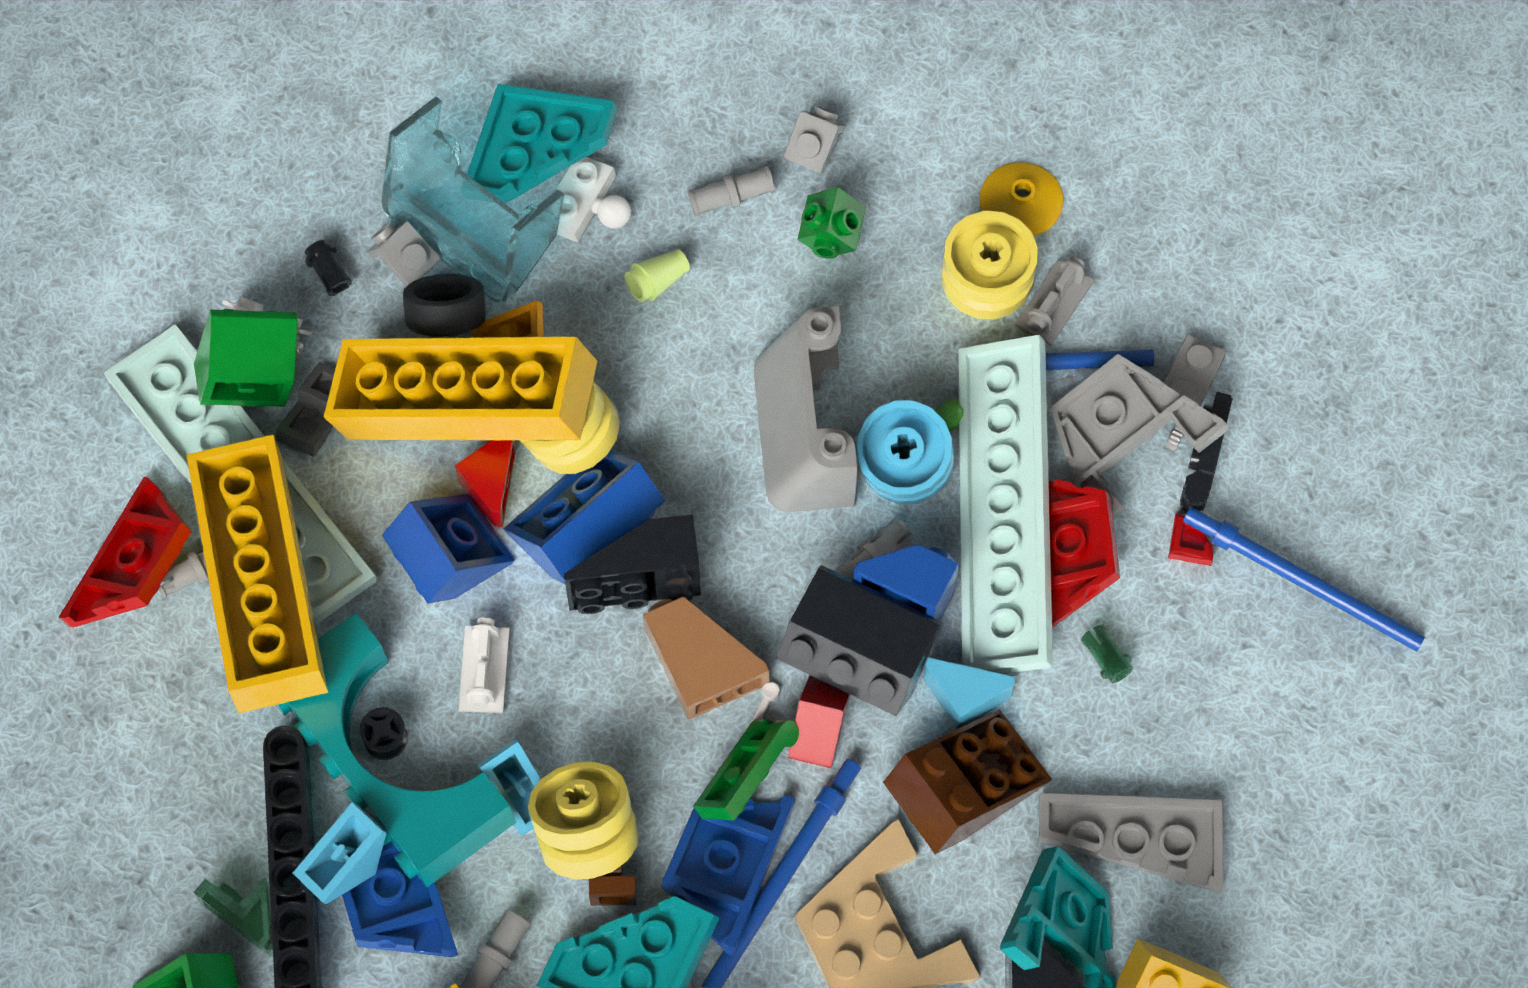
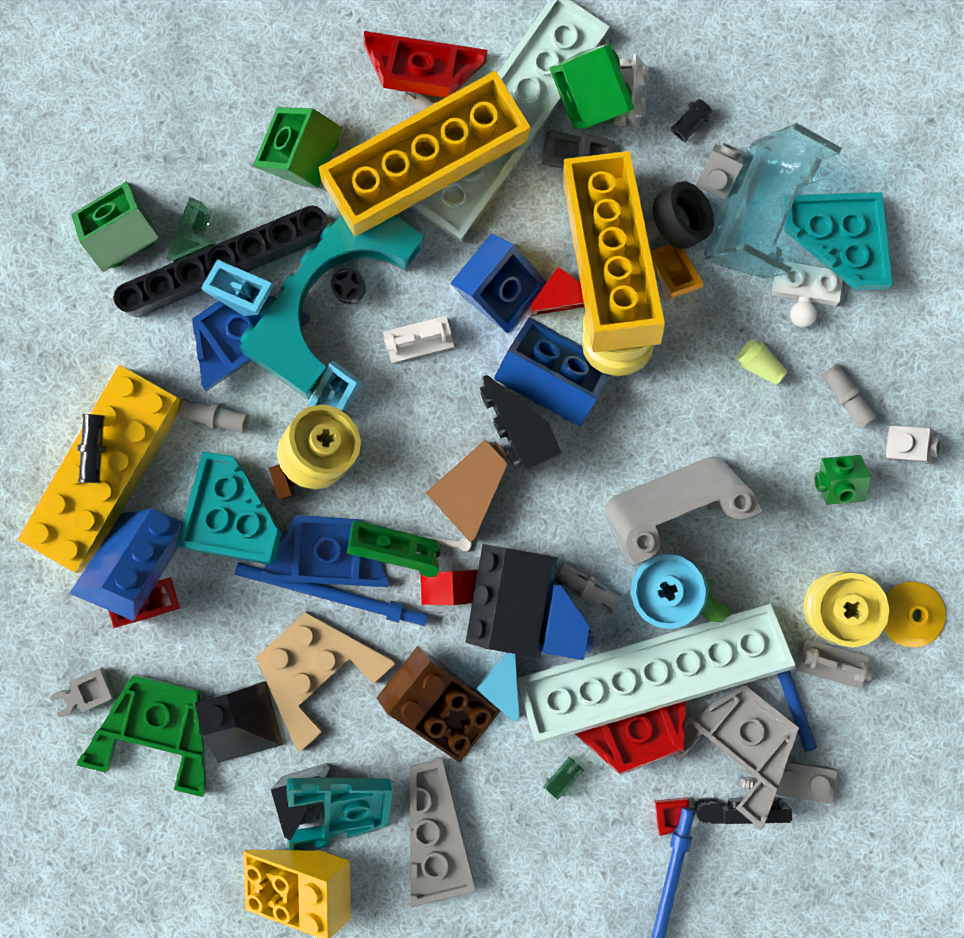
camera: 75 degrees right, 20 degrees up
(175, 743) = (298, 145): none -> green slope

